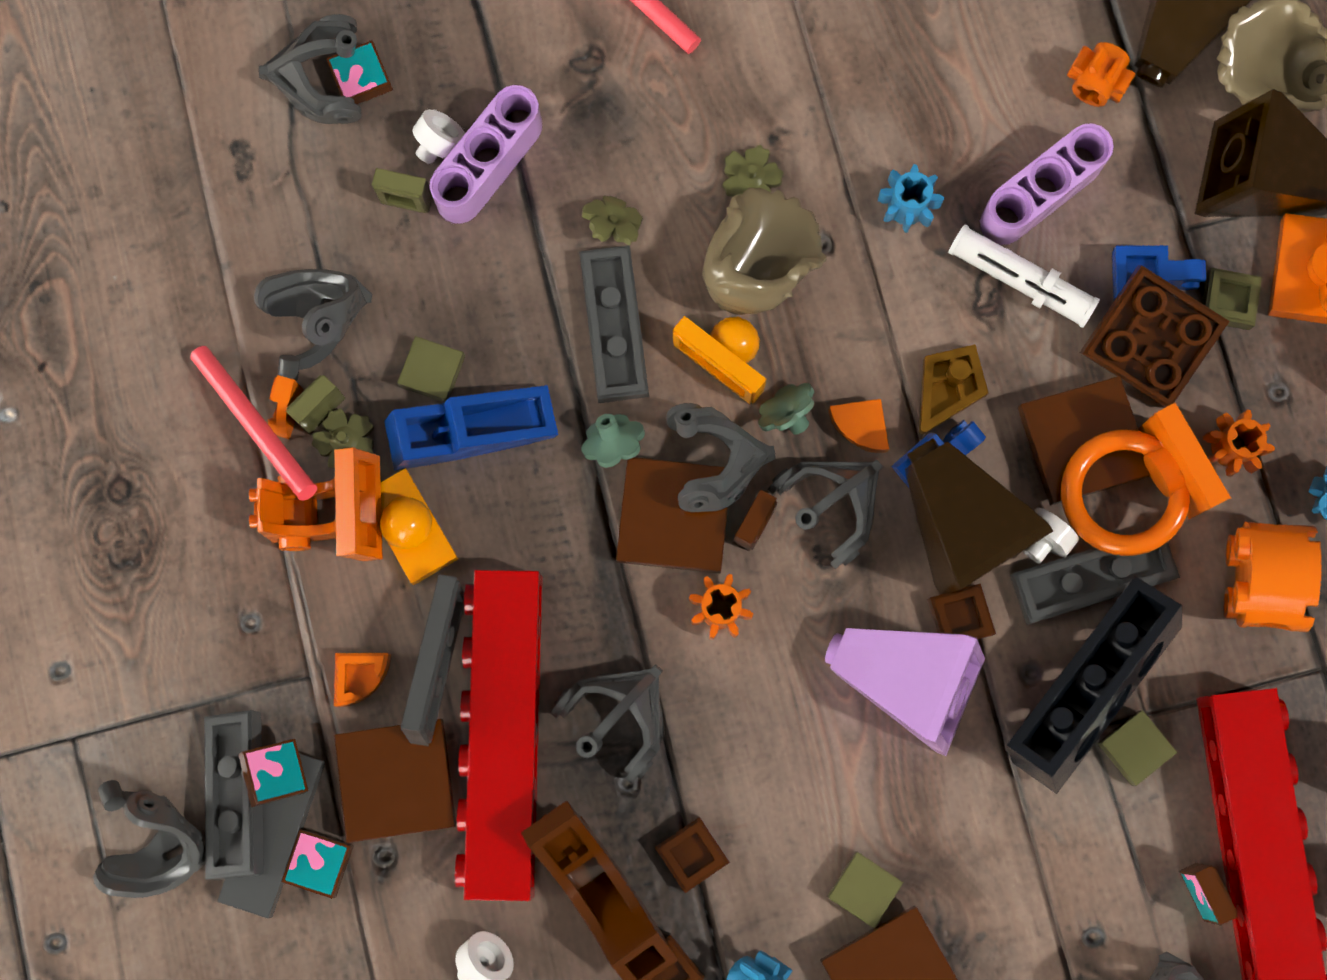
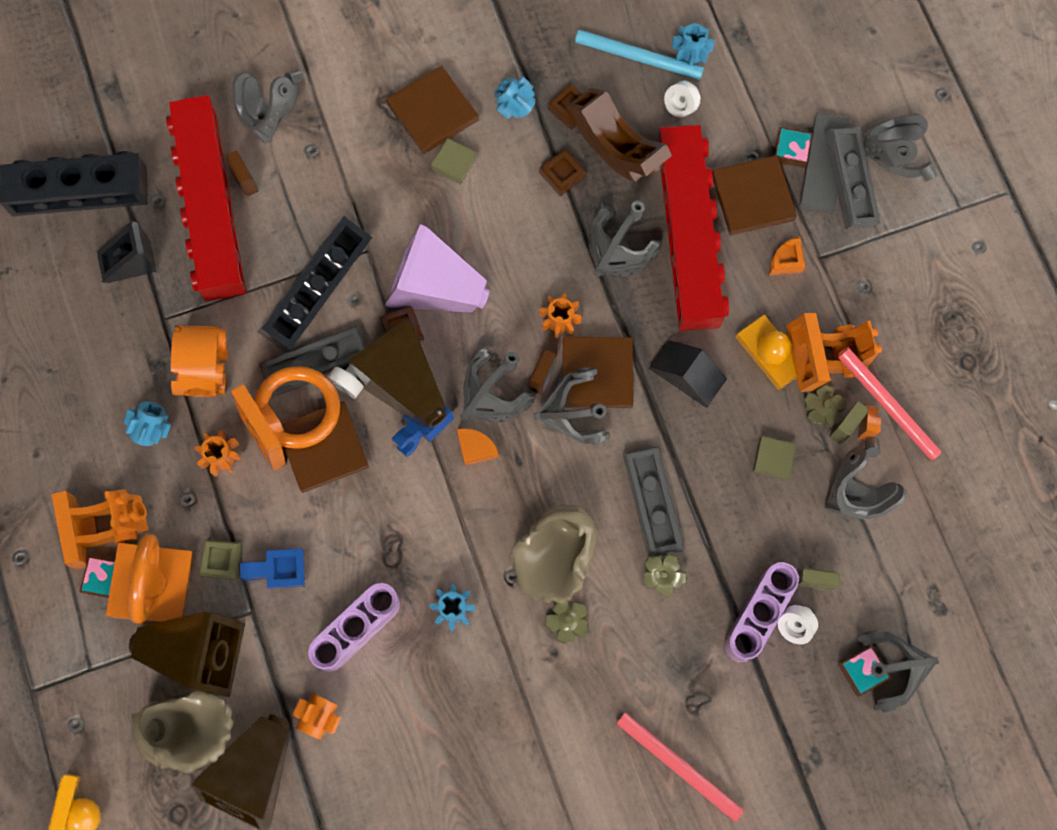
camera: 170 degrees right, 5 degrees down
(273, 772) = (830, 188): tile -> none
(433, 661) = (741, 261): dark grey tile -> none
(469, 426) = (741, 418): blue slope -> none
(539, 507) = (689, 371): none -> black slope
(613, 439) = (644, 418): sand green plant -> none
(724, 353) = (575, 482): light orange tile -> none
(787, 409) = (528, 449): sand green plant -> none
(950, 385) = (416, 478): pearl gold piece -> none
(1024, 276) = (361, 556): white pin -> none
(1137, 747) = (285, 257): olive tile -> none
(1154, 336) = (276, 521): reddish brown tile -> none

